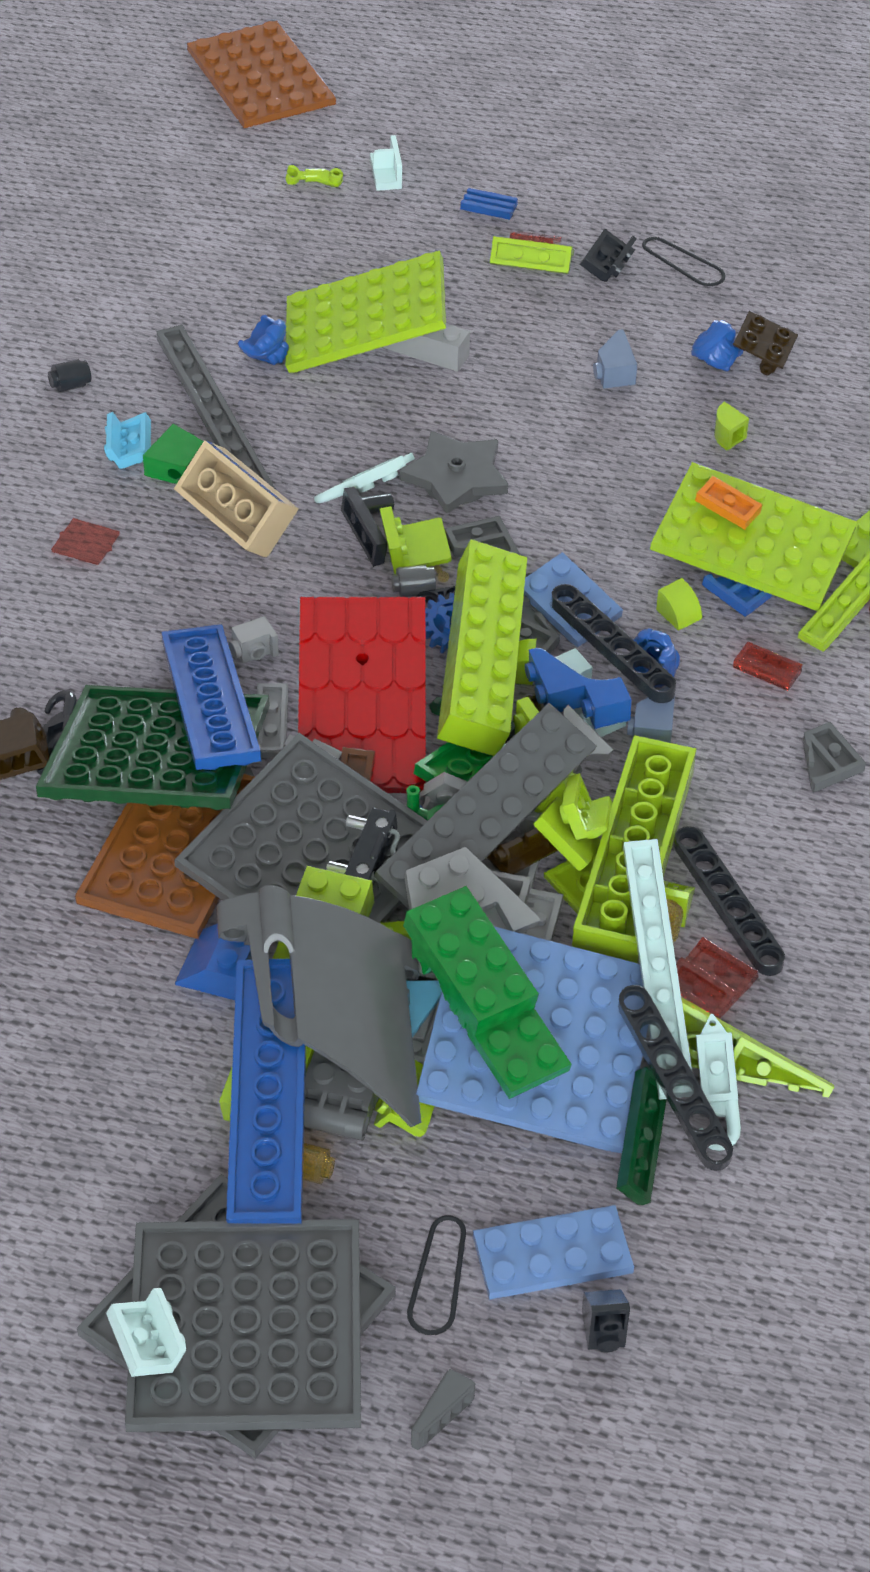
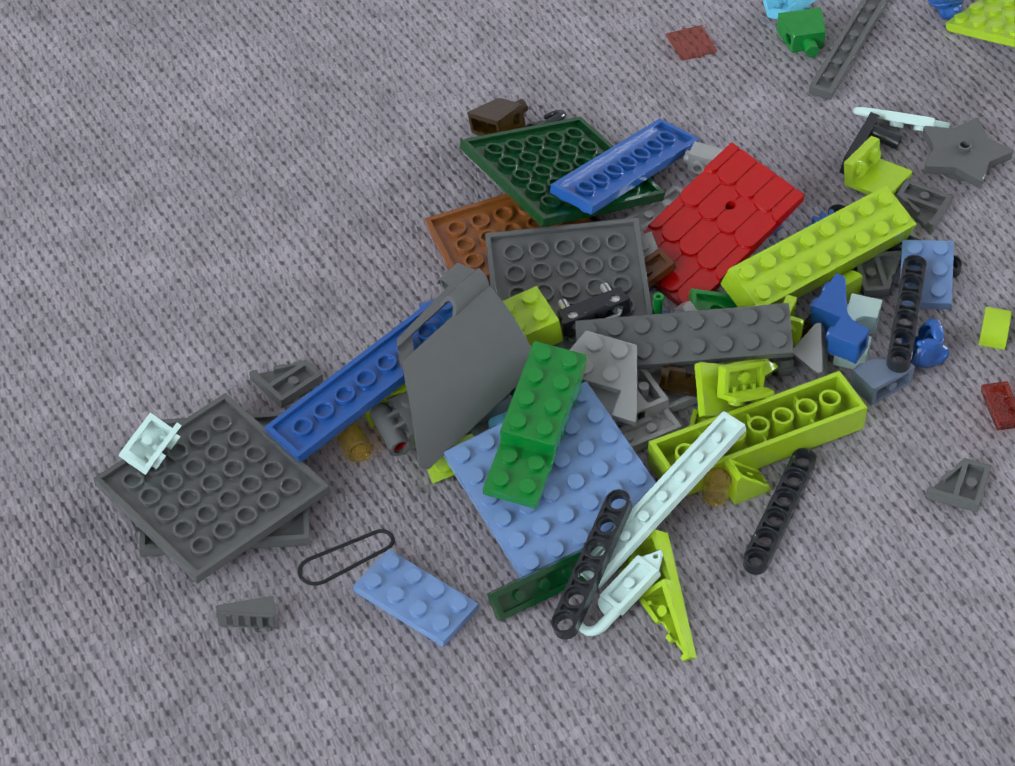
camera: 50 degrees right, 0 degrees up
(159, 1164) = (287, 381): none -> dark grey wing
(236, 499) = (796, 73): tan brick -> none
(413, 579) = (844, 193): dark grey brick -> none
(605, 1319) = (385, 648): black slope -> none
(713, 978) = (705, 542): clear red slope -> none

